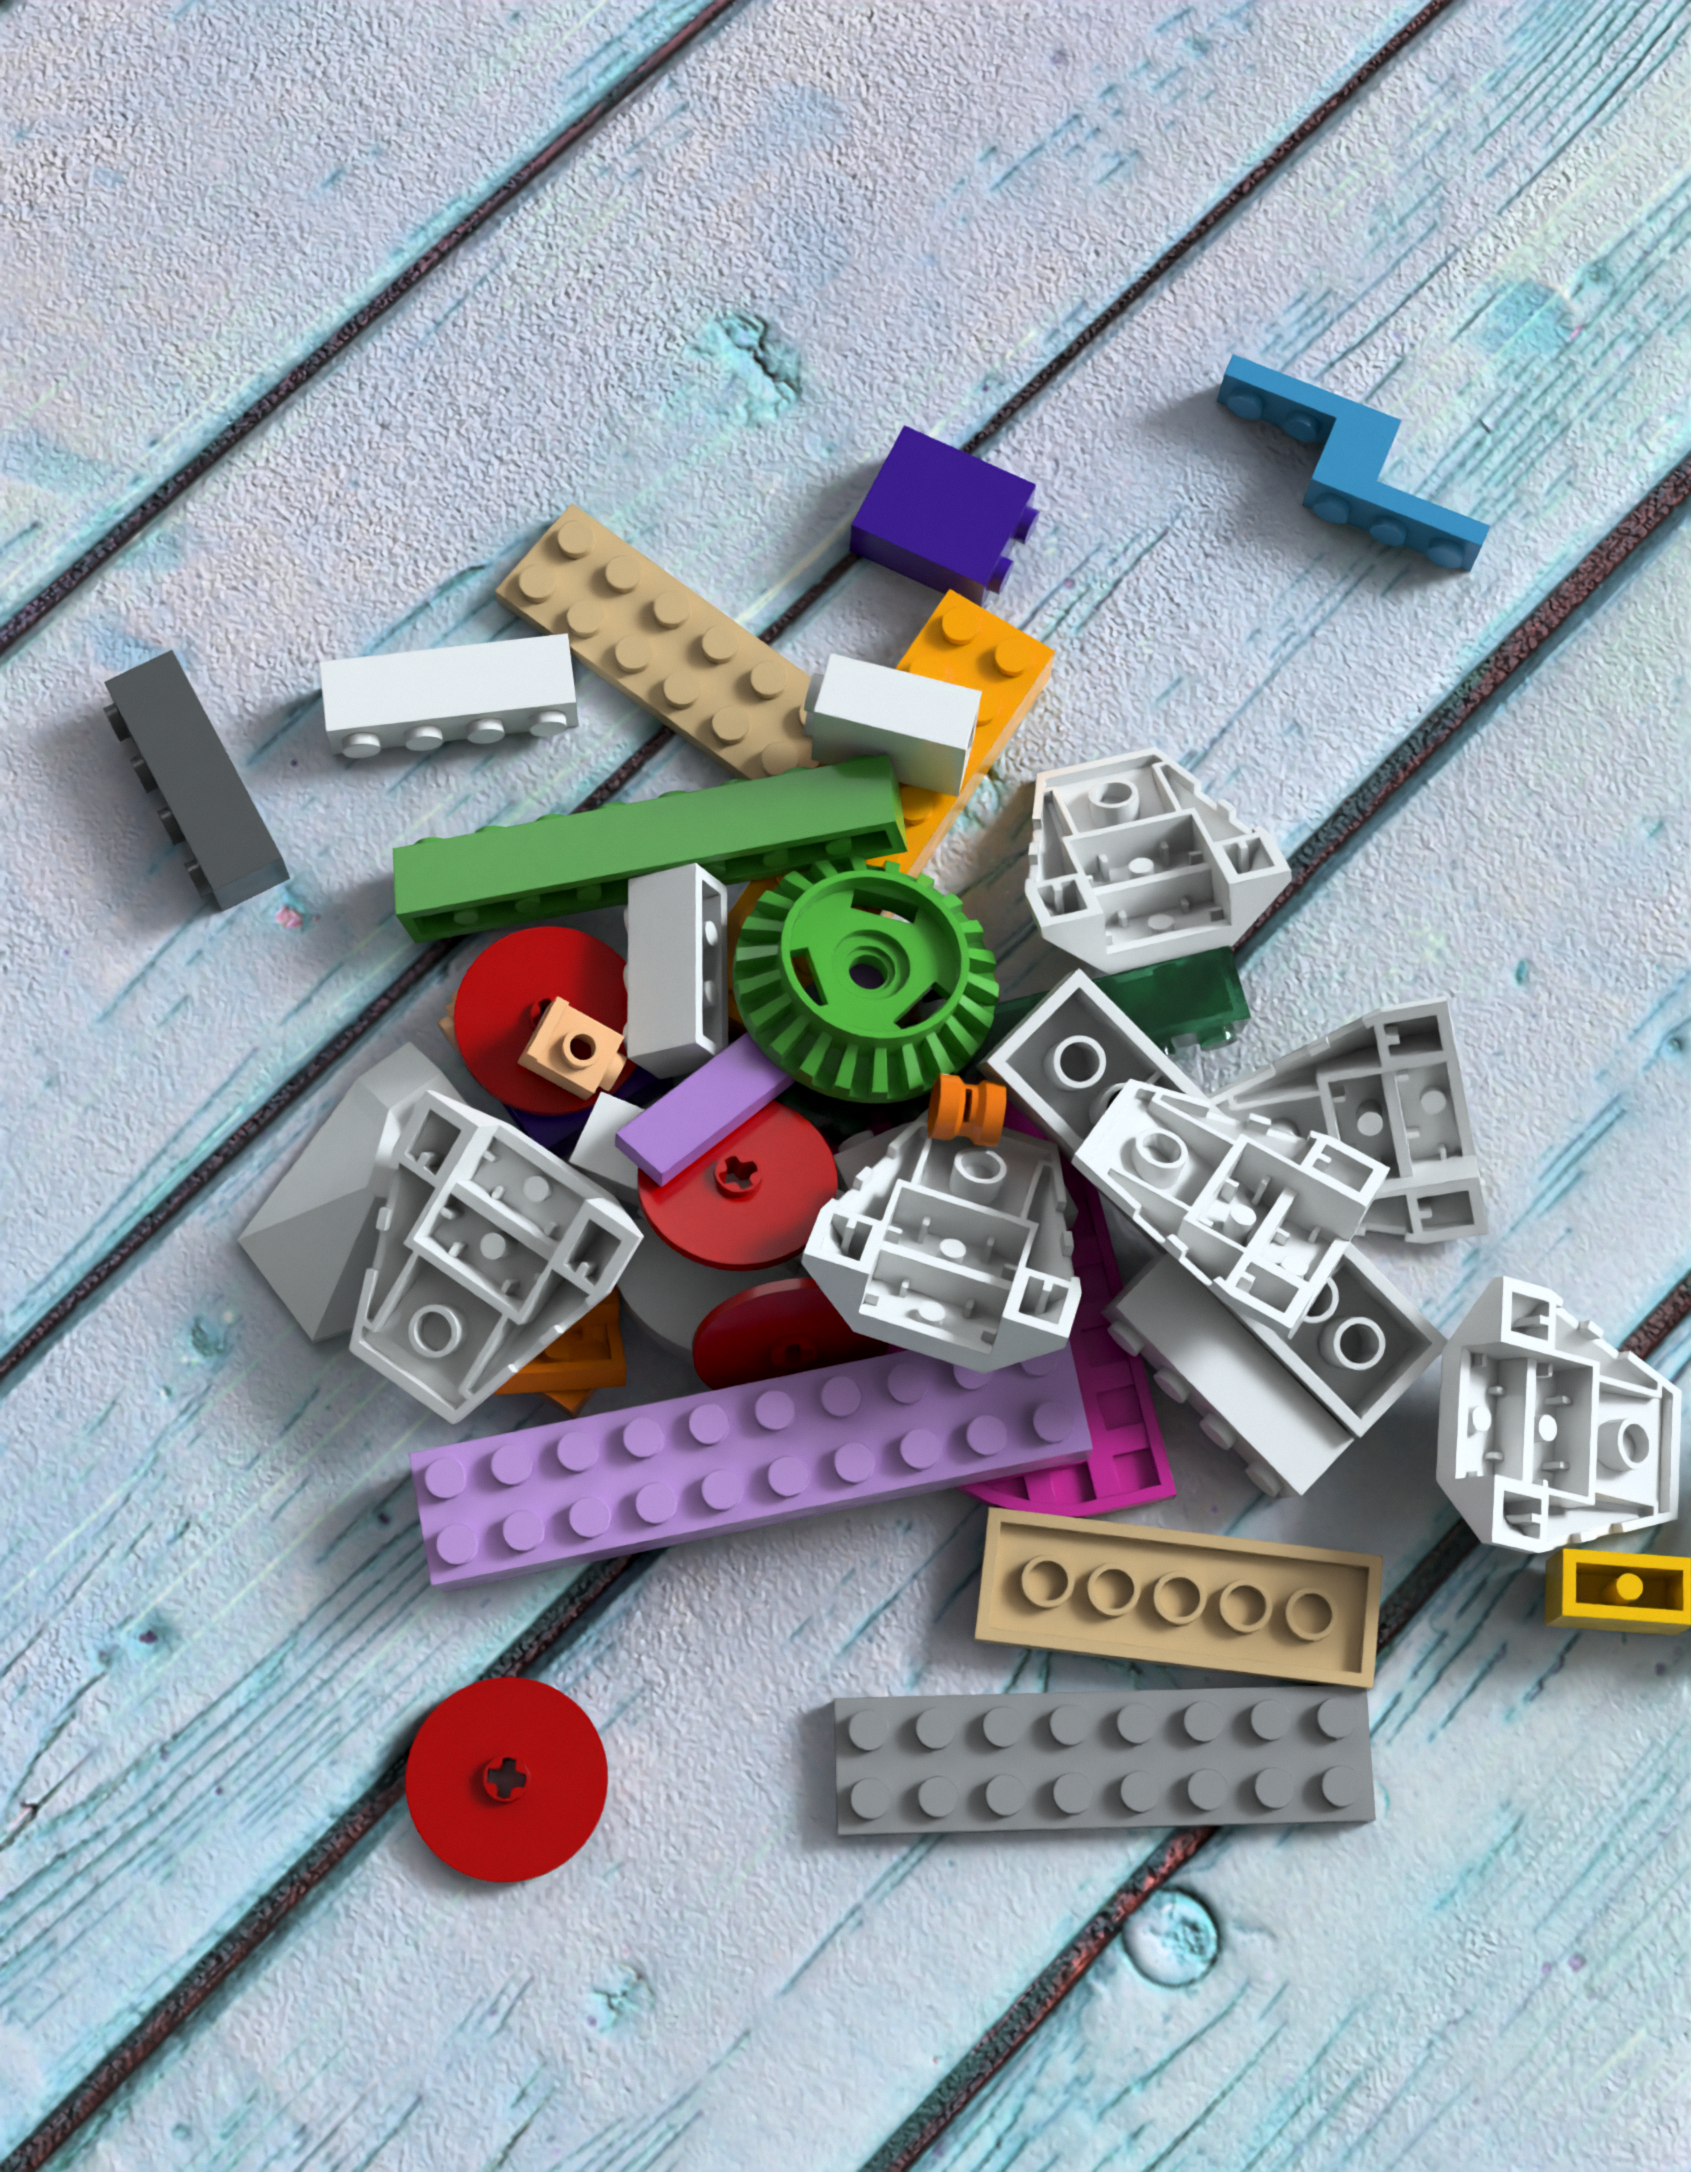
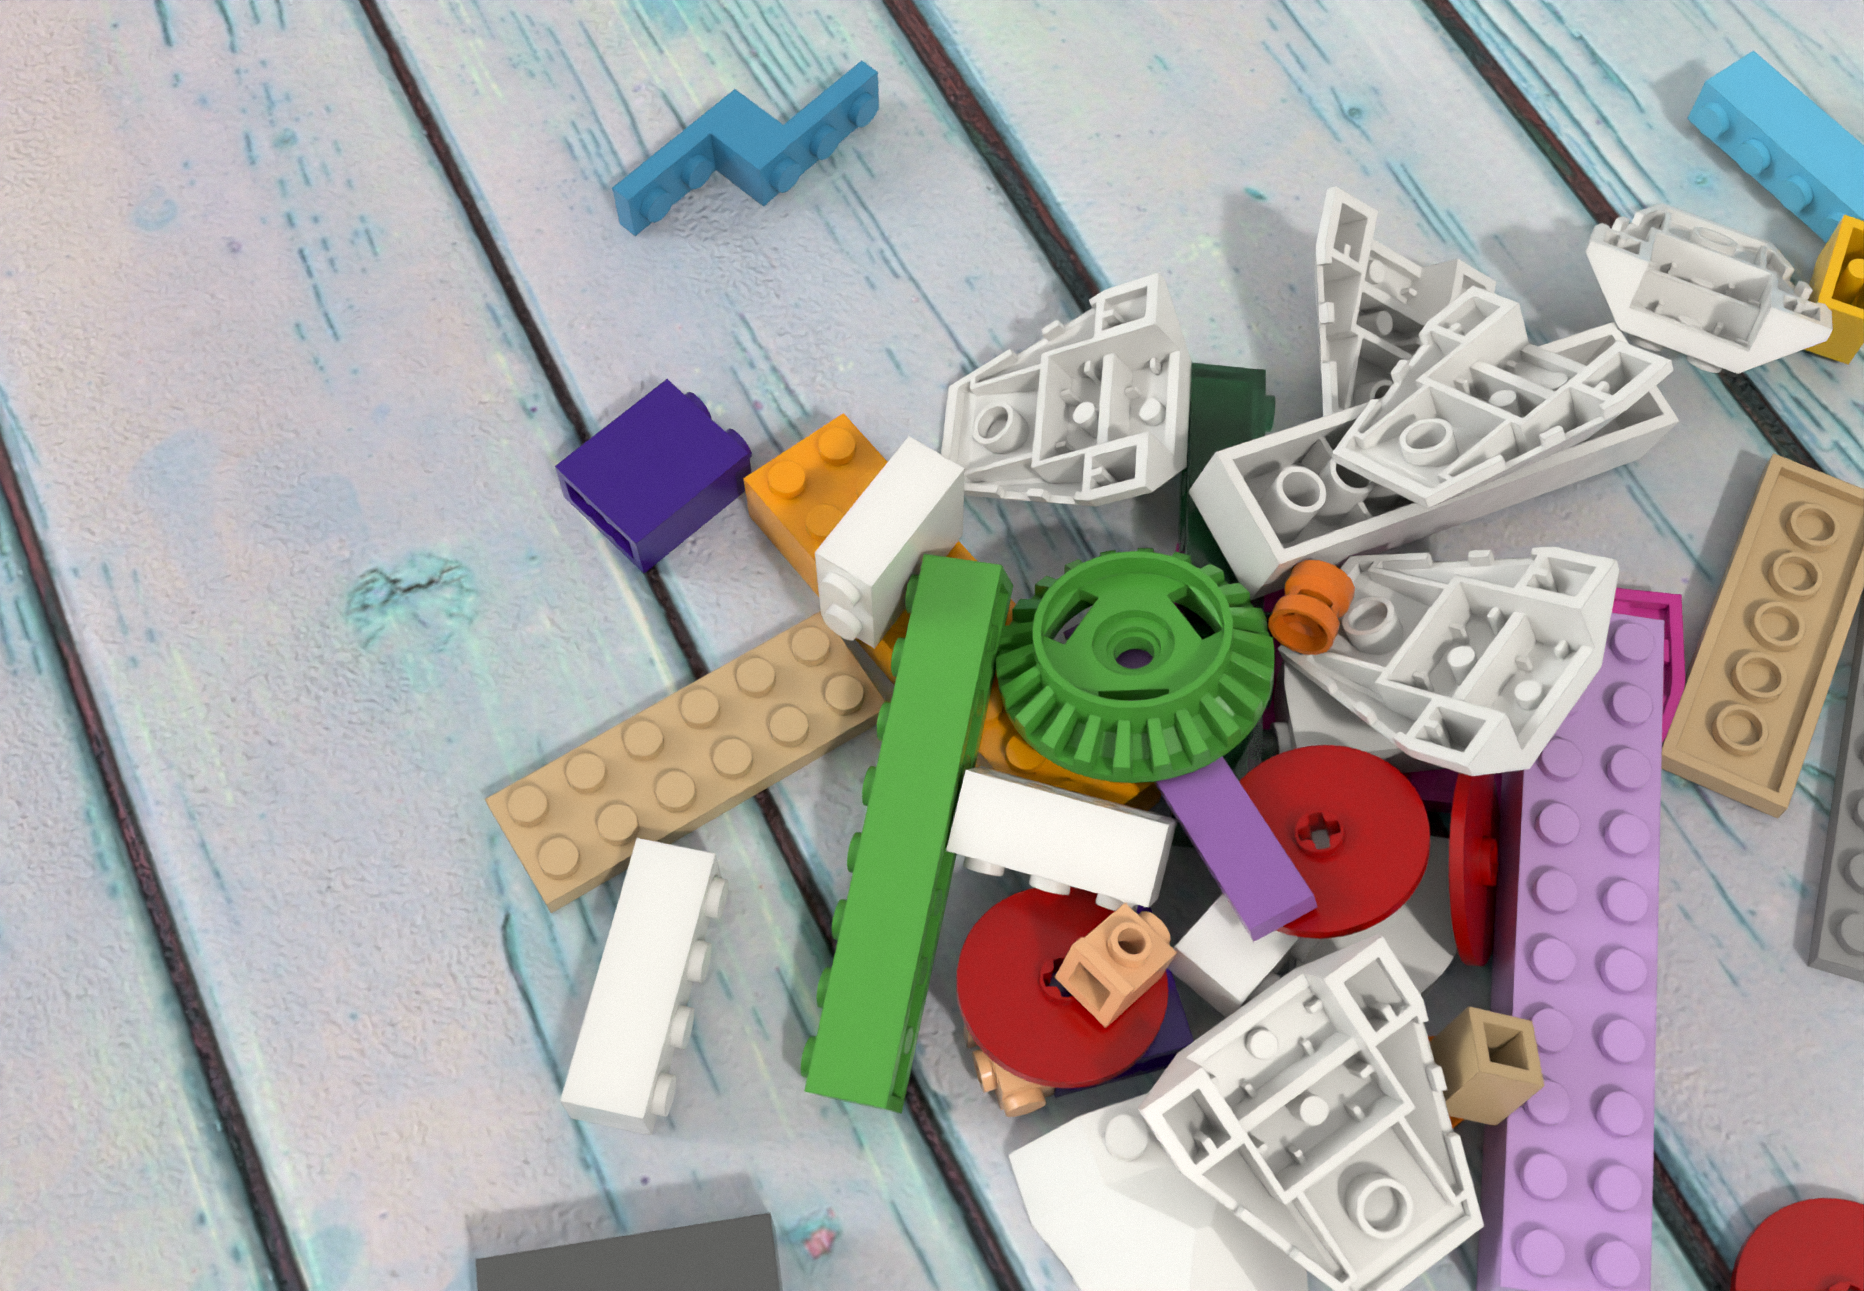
camera: 65 degrees left, 10 degrees down
(586, 1383) = (1487, 1064): none -> tan brick
(1226, 1377) = (1594, 506): white brick -> none

